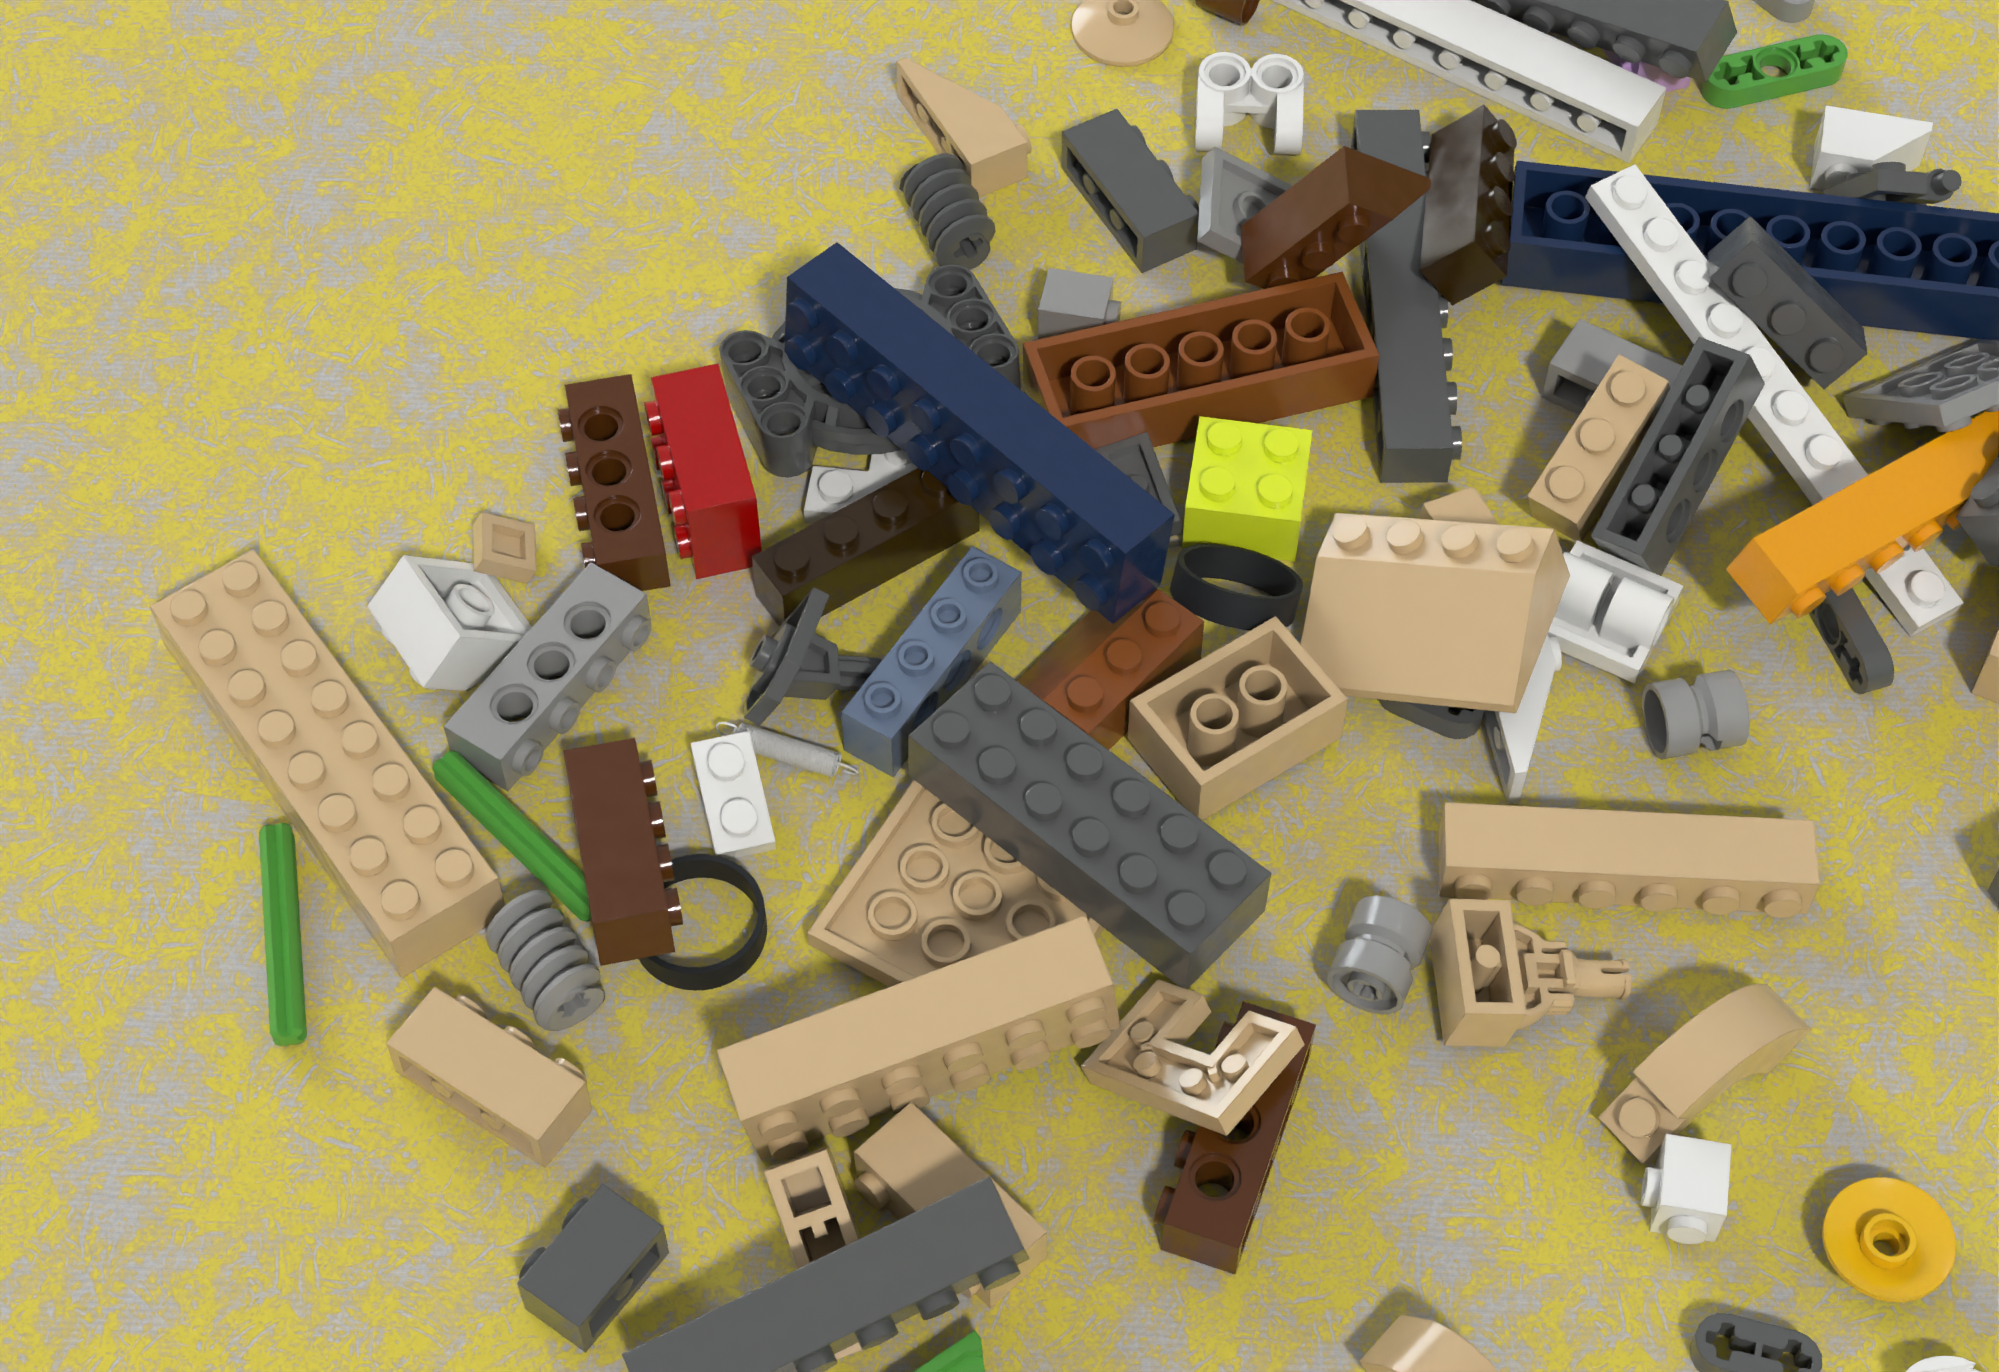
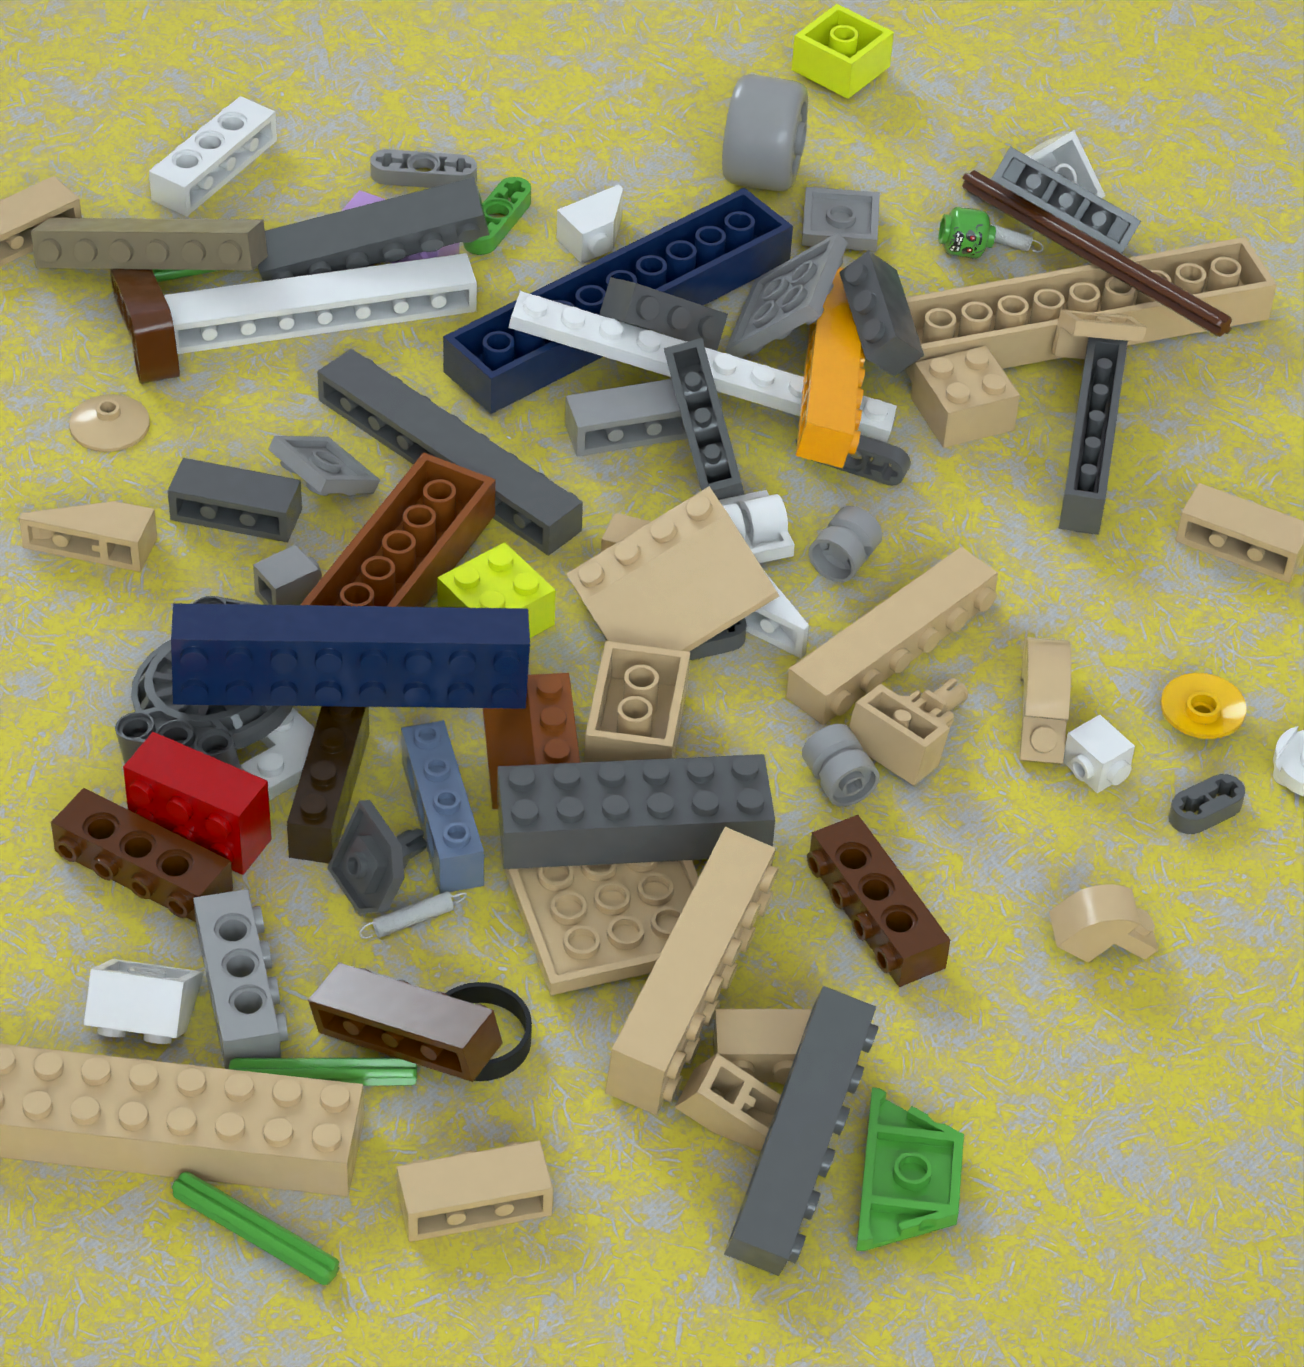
camera: 50 degrees left, 10 degrees down
(504, 547) = (117, 938): tan tile -> none
(545, 961) = (428, 1112): light grey piece -> none
(592, 1266) = (649, 1227): dark grey brick -> none
(733, 796) = (418, 955): white plate -> none
(948, 211) = (146, 580): dark grey piece -> none
(1153, 1067) = (853, 878): tan plate -> none
(1240, 566) = (564, 647): black tyre -> none
(1268, 92) = (249, 399): white piece -> none
(1325, 217) = (393, 428): reddish brown slope -> none
(1468, 205) = (442, 377): dark brown brick -> none
(1598, 449) = (656, 448): tan brick -> none
(1893, 183) = (643, 223): dark grey plate -> none

